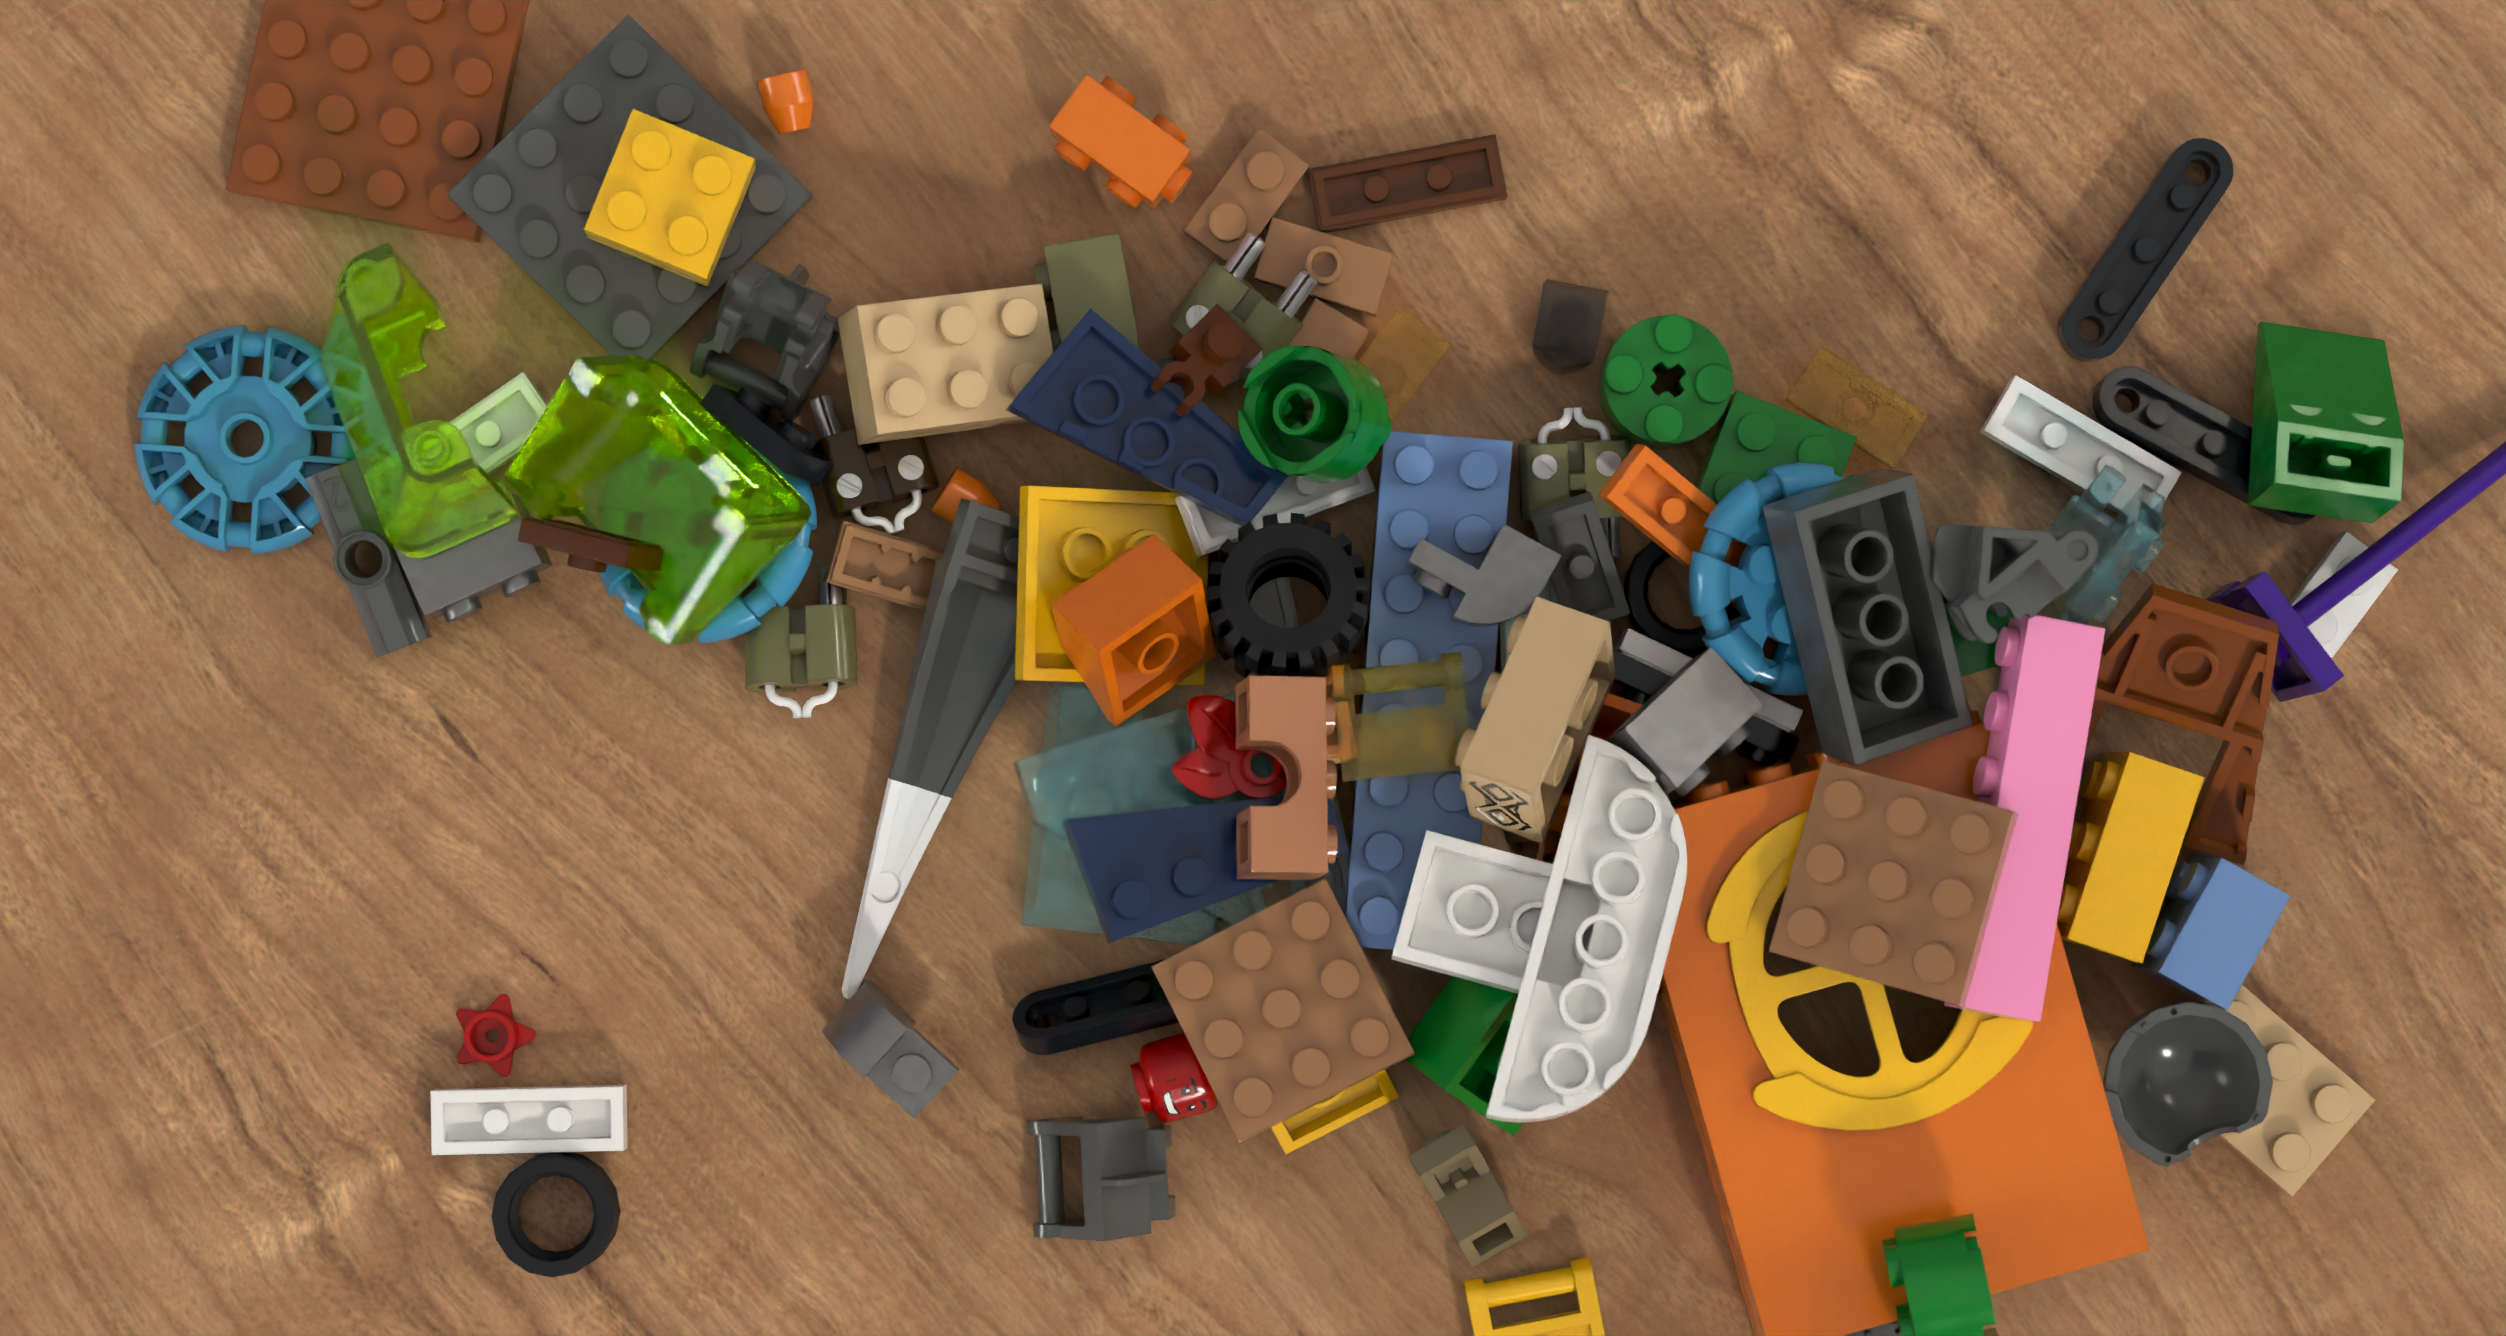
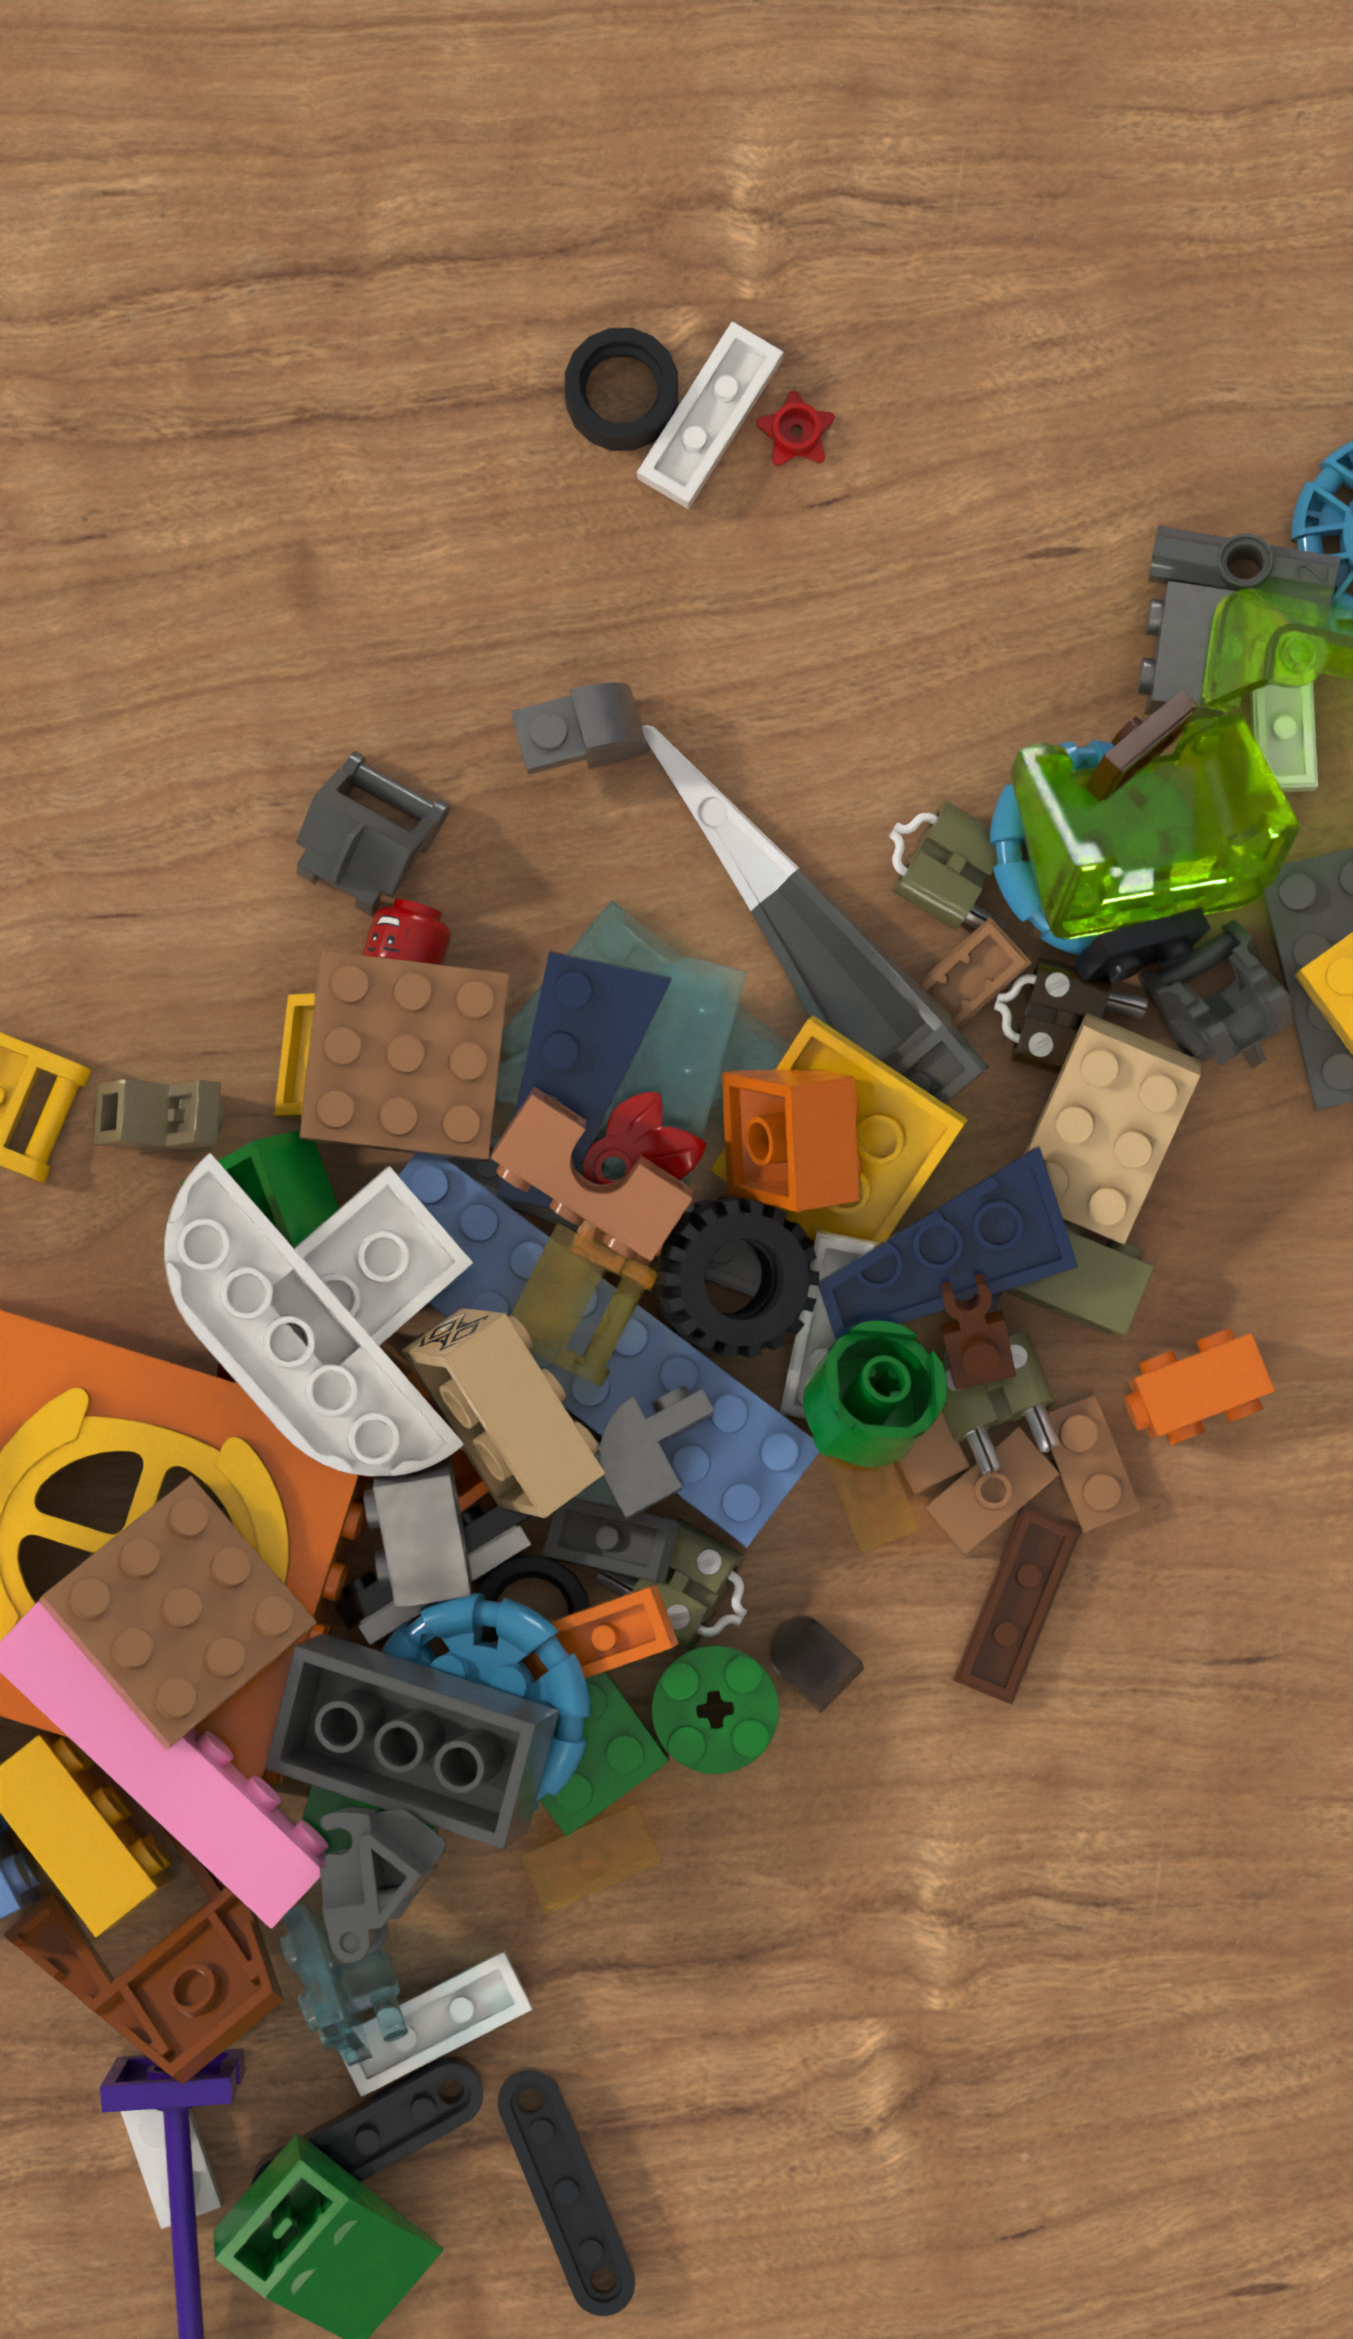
camera: 120 degrees right, 5 degrees down
(961, 486) = (994, 1080): orange hose -> none
(1092, 1011) = (506, 908): black plate -> none

